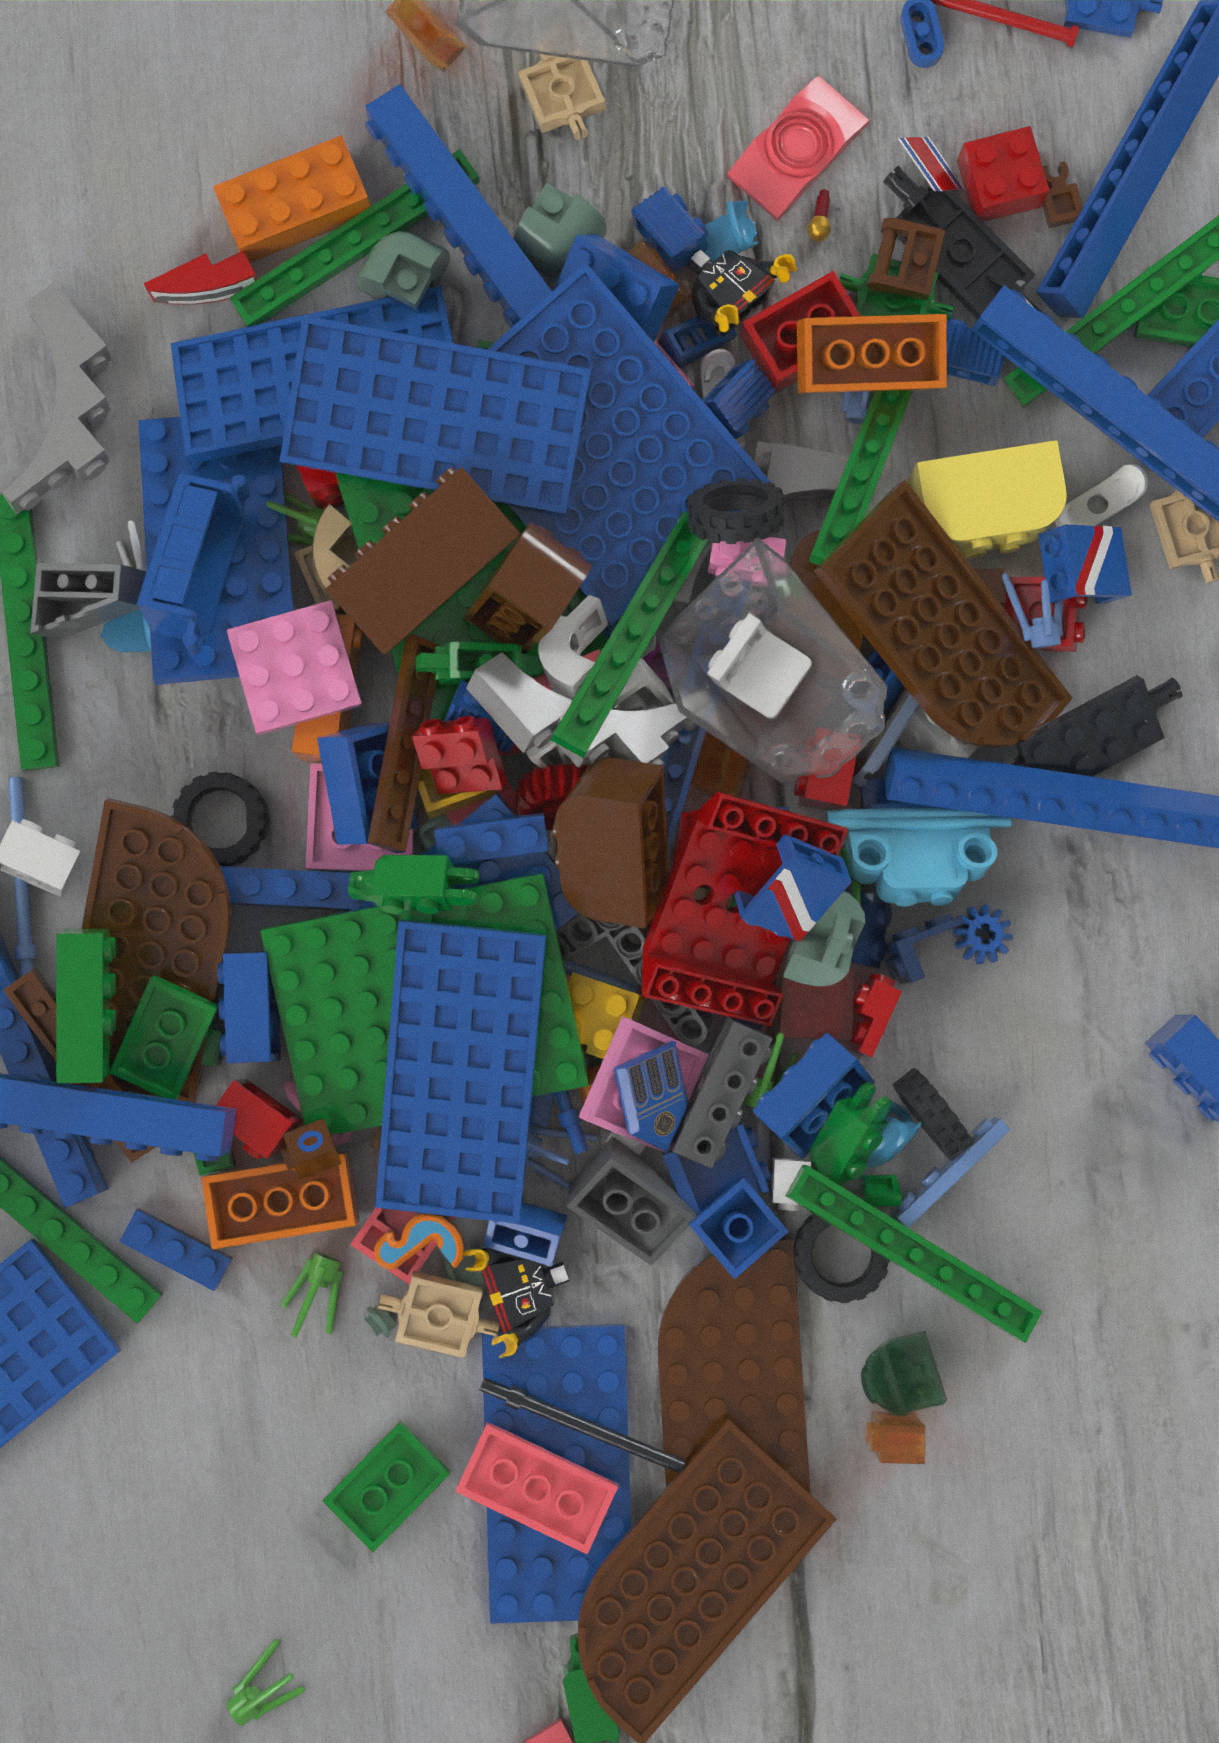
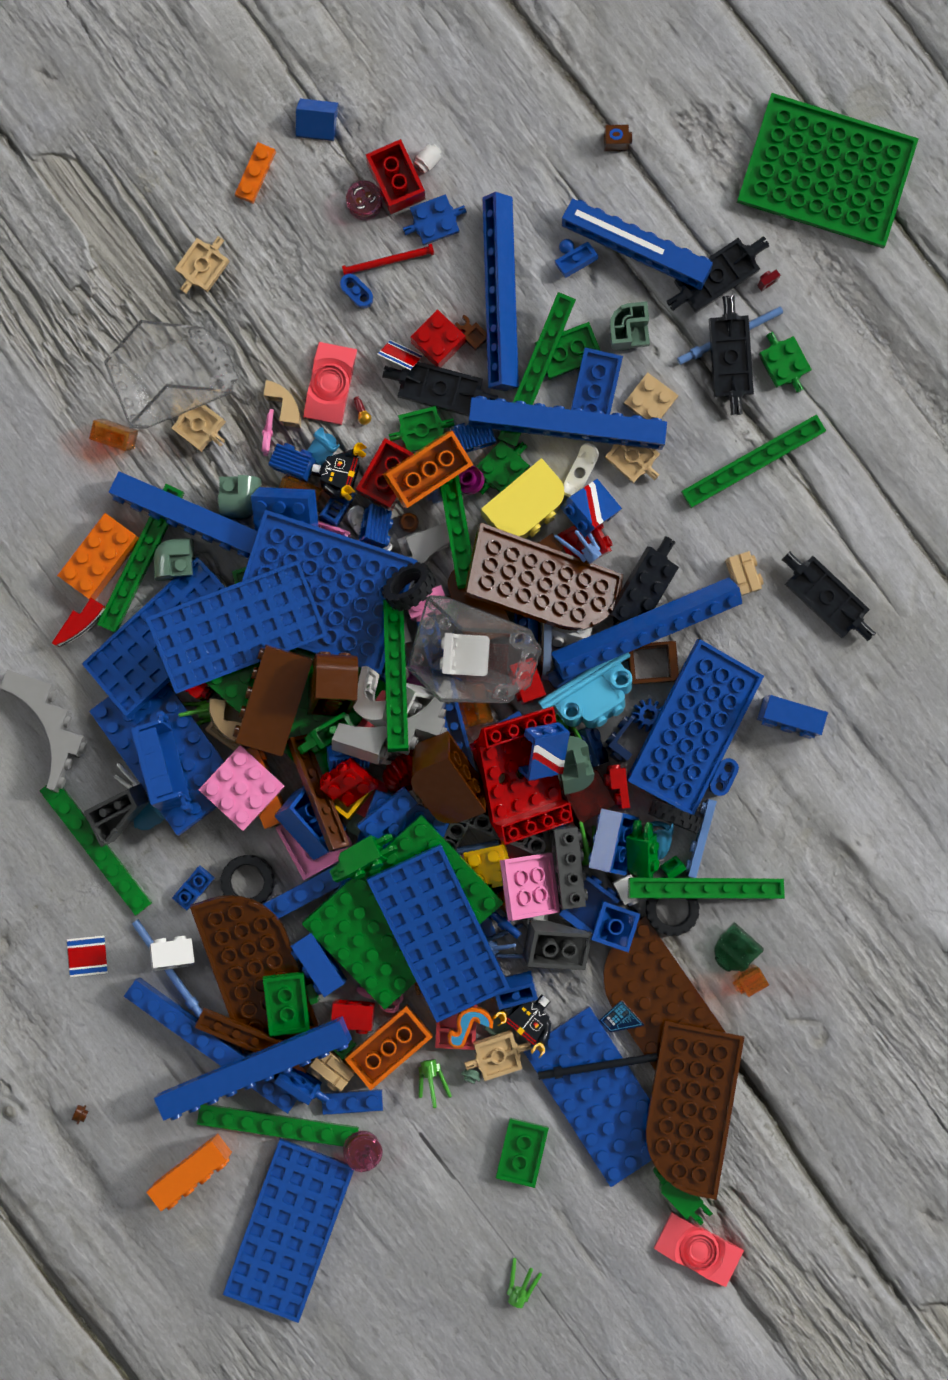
camera: 30 degrees left, 0 degrees up
(83, 1004) = (239, 1010): green brick -> none
(112, 1178) = (302, 1086): none -> blue plate
(135, 779) = (193, 887): none -> blue slope
(144, 1335) = (362, 1151): none -> clear pink head
(175, 1184) = (333, 1070): none -> tan brick
(310, 1149) = (389, 1014): reddish brown brick -> none
(537, 1488) = (594, 1109): coral plate -> none
(653, 1095) = (537, 888): blue tile -> none
(657, 165) = (267, 433): none -> bright pink piece
(660, 1373) = (620, 1018): none -> dark blue sticker
(710, 153) = (290, 412): none -> tan brick
(791, 425) = (408, 522): none -> reddish brown plate
(917, 263) = (422, 407): reddish brown plate -> none
(925, 416) = (471, 480): none -> magenta plate
(982, 422) = (502, 466): none -> green plate
(1041, 1100) = (724, 777): none -> blue plate
(1045, 995) = (694, 727): none -> blue plate
(1069, 874) = (672, 661): none -> reddish brown window

